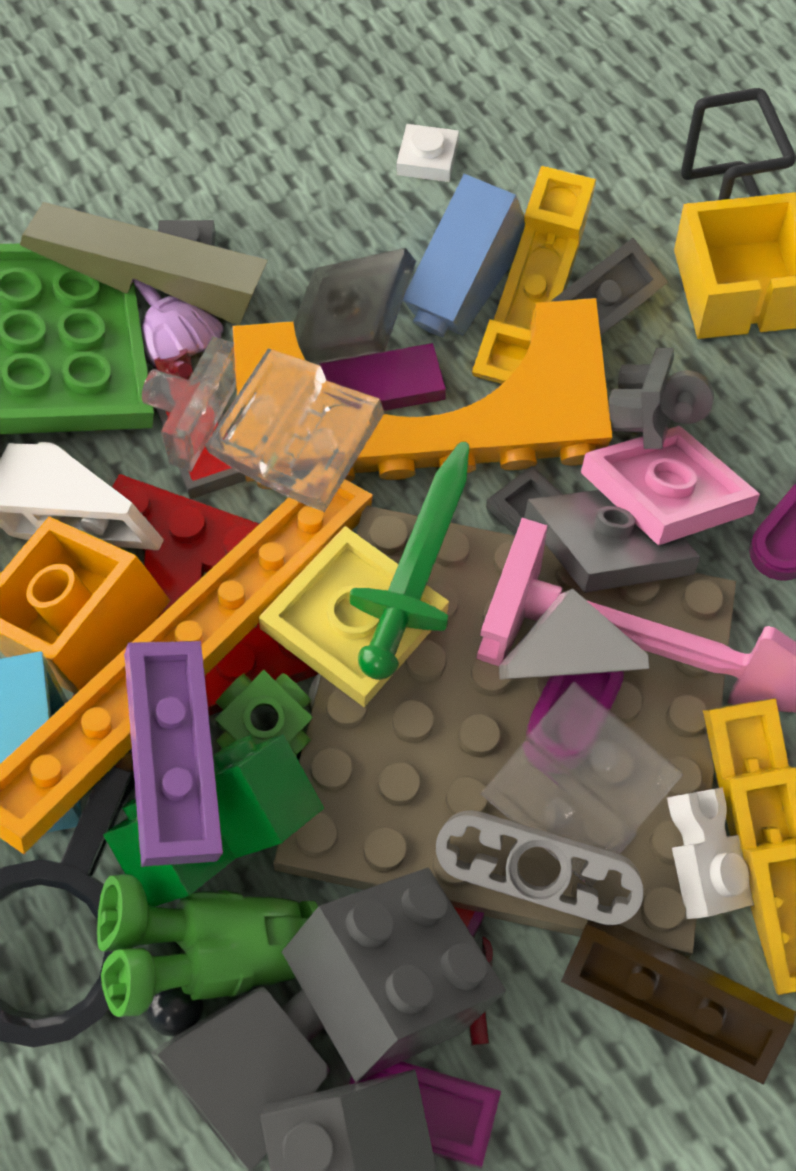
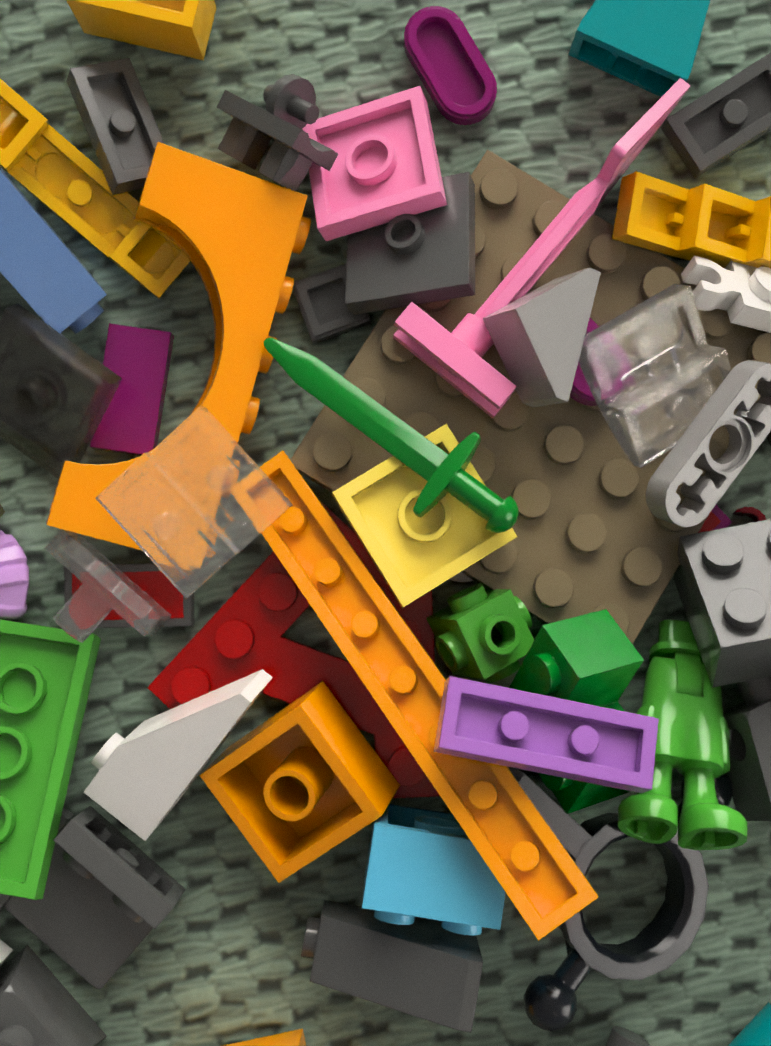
camera: 70 degrees left, 25 degrees up
(178, 366) = (53, 593): dark red hand -> none

